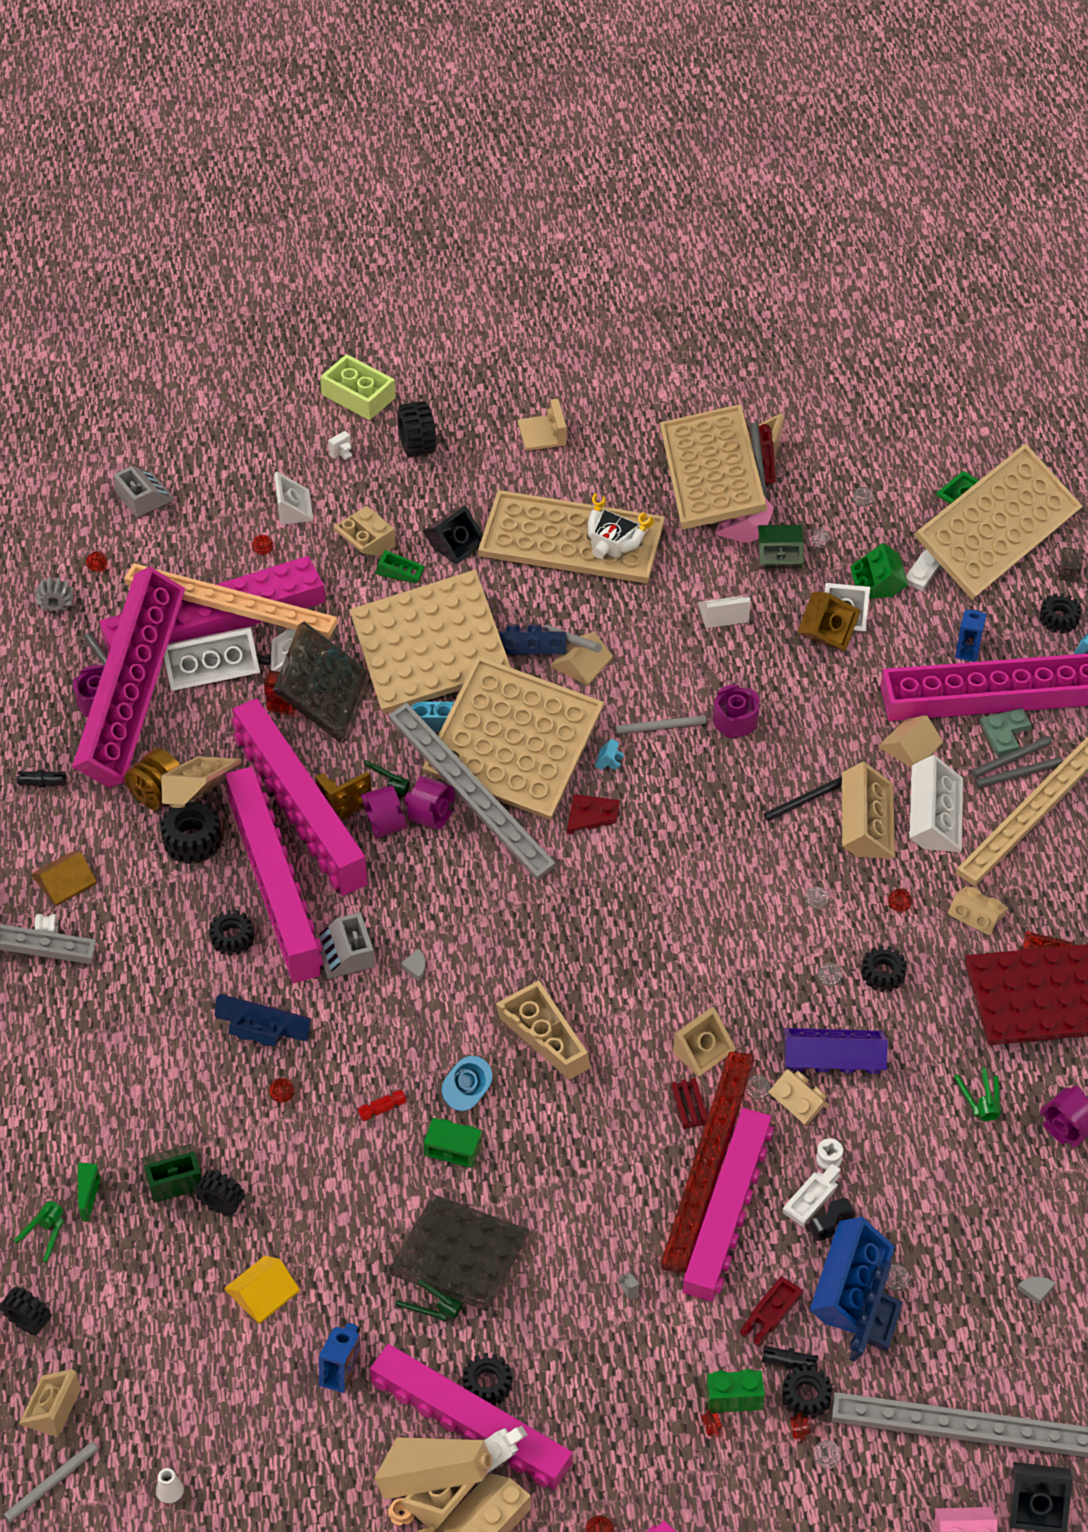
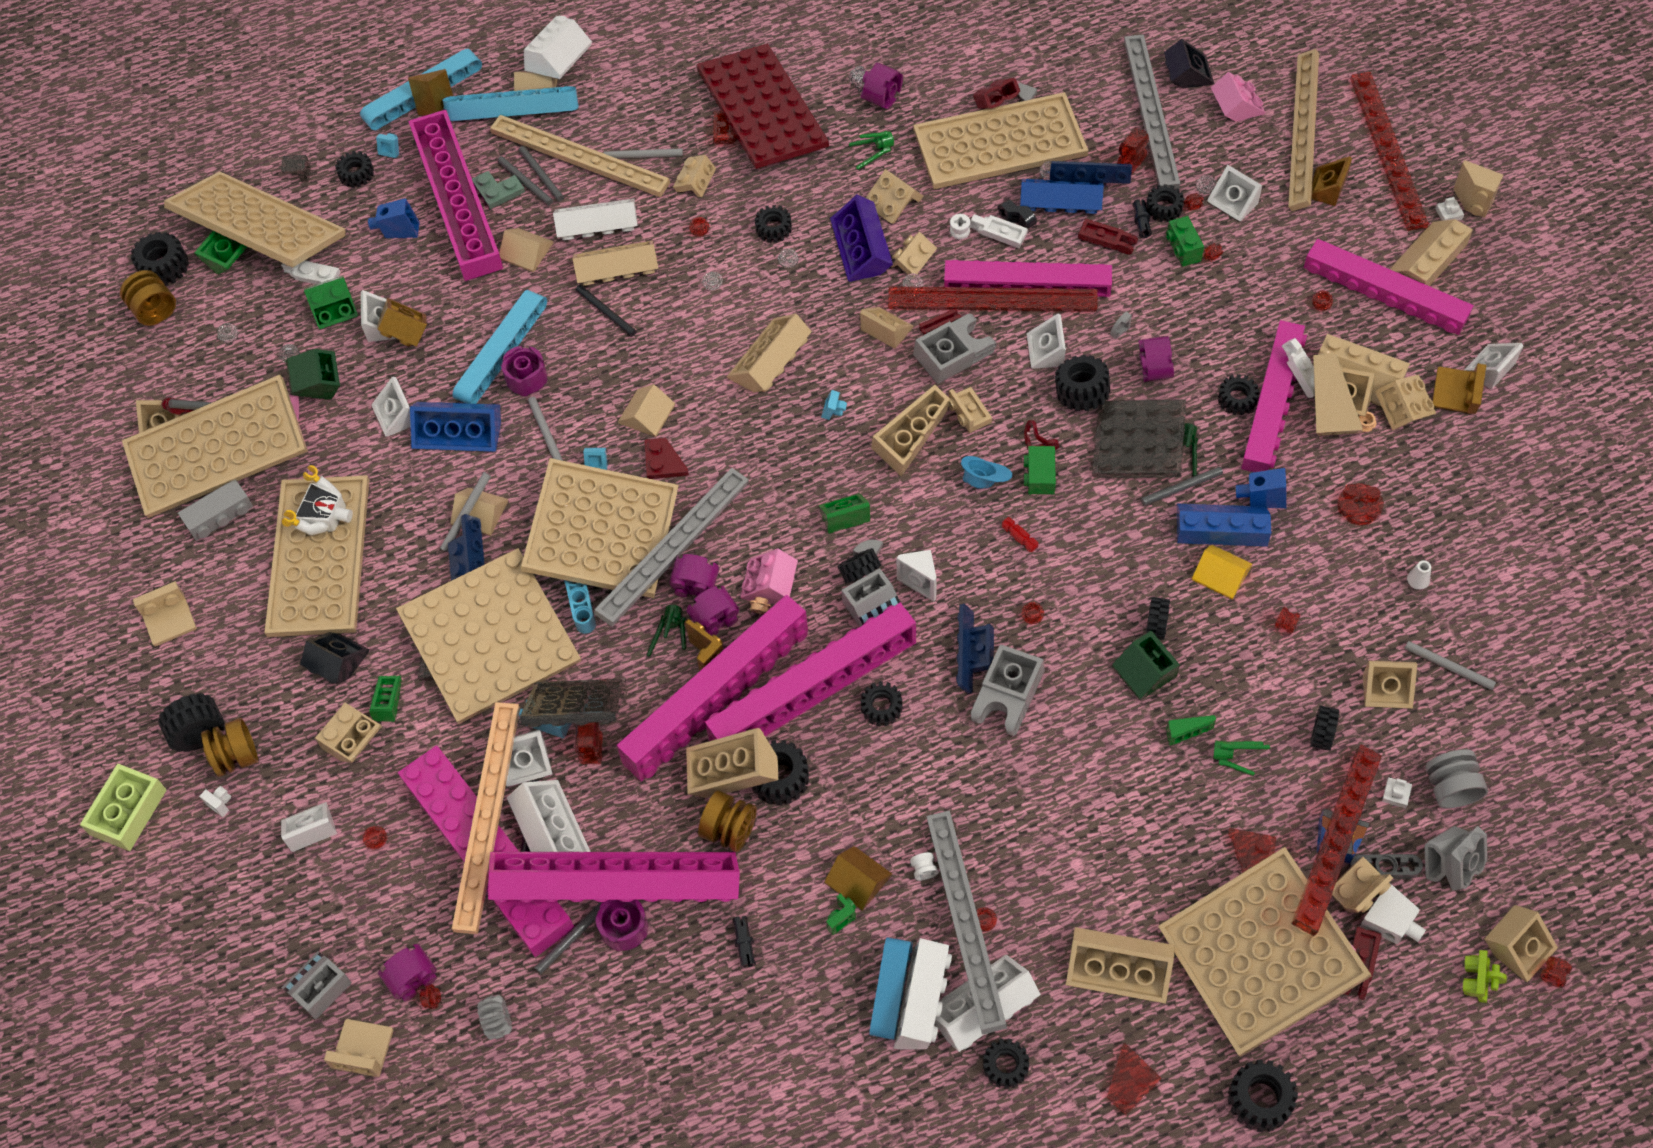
camera: 100 degrees left, 10 degrees up
(31, 856) = (841, 918): none -> green bracket
(70, 513) = (360, 1048): none -> tan bracket
(119, 544) = (407, 972): none -> magenta brick
(170, 1327) = (1287, 620): none -> clear red wheel
(199, 1040) = (1006, 693): none -> light grey brick
(285, 1450) = (1360, 492): none -> clear red plate
(319, 1301) = (1223, 525): none -> blue slope
(355, 990) = (918, 572): none -> white slope
(381, 856) = (759, 605): none -> light nougat plate
(383, 452) = (234, 745): none -> pearl gold wheel
(386, 1283) = (1181, 486): none -> dark grey bar
(389, 940) = (859, 565): none -> black tyre
(409, 869) = (769, 576): none -> bright pink slope
(469, 950) = (845, 512): none -> green slope
(515, 1147) = (1051, 442): none -> dark red piece
(557, 1194) = (1082, 383): none -> black tyre
(558, 1093) = (969, 409): none -> tan bracket
(560, 1297) = (1156, 358): none -> magenta brick
(606, 969) = (833, 405): none -> medium azure tile
(623, 1200) = (1047, 344): none -> white slope
(644, 1094) = (951, 348): none -> light grey brick
(647, 469) = (215, 510): none -> light grey brick
(655, 810) = (647, 410): none -> tan slope
(688, 651) = (455, 426): none -> blue slope
(695, 927) = (770, 353): none -> tan slope
(780, 701) = (507, 336): none -> medium azure beam
(797, 1479) = (1235, 193): none -> white slope
(893, 1369) = (1133, 148): none -> clear red brick
(899, 1097) = (892, 196): none -> tan bracket
(915, 435) = (147, 297): none -> pearl gold wheel
(960, 1237) = (999, 140): none -> tan plate
(969, 450) = (156, 246): none -> black tyre
(1027, 870) = (645, 153): none -> light grey bar
(1034, 1244) = (996, 93): none -> dark red brick

